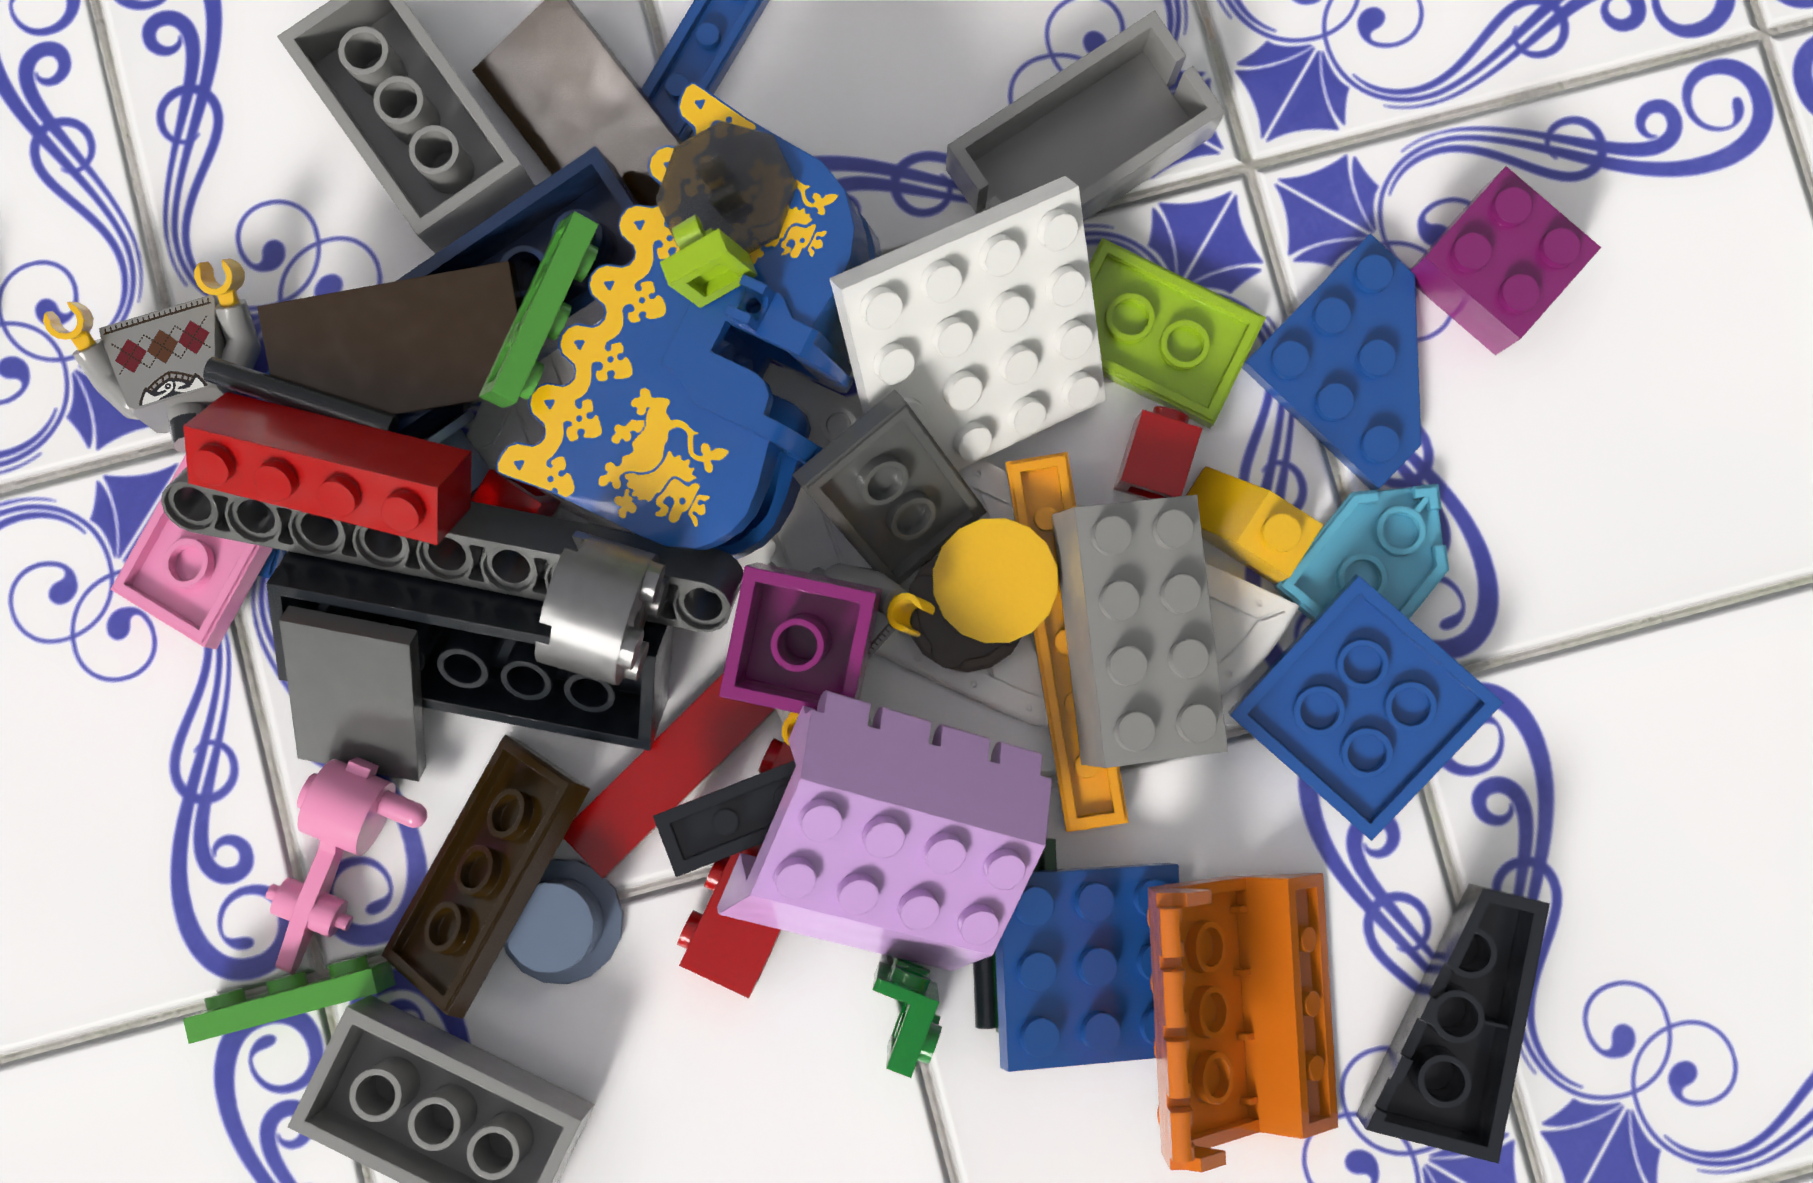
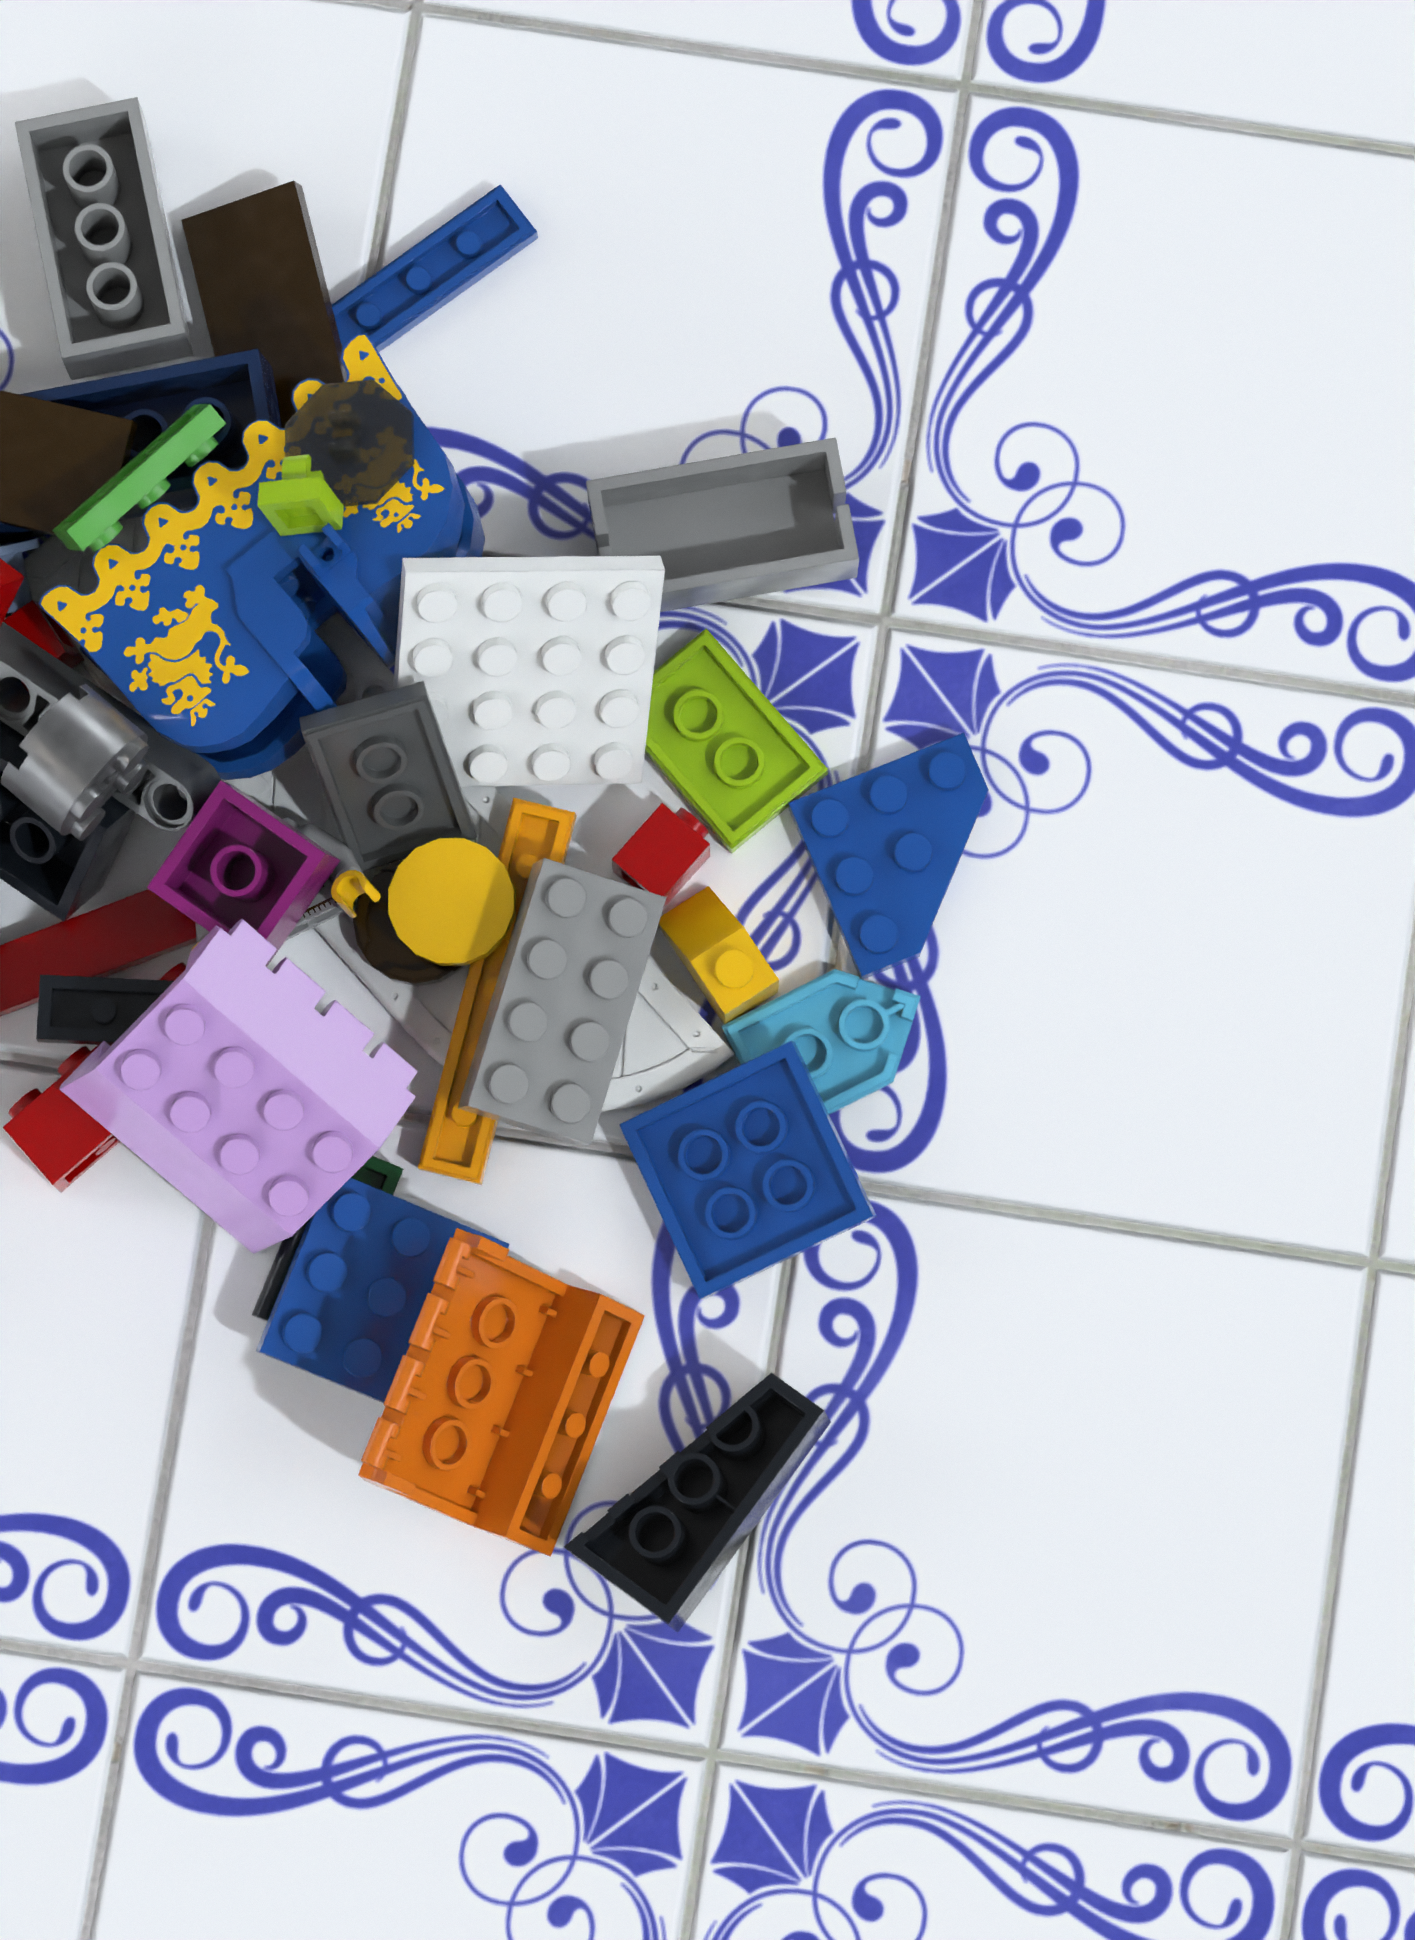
camera: 25 degrees right, 5 degrees down
(917, 1024) = (193, 1273): green bracket -> none
(1503, 261) = (1072, 810): magenta brick -> none

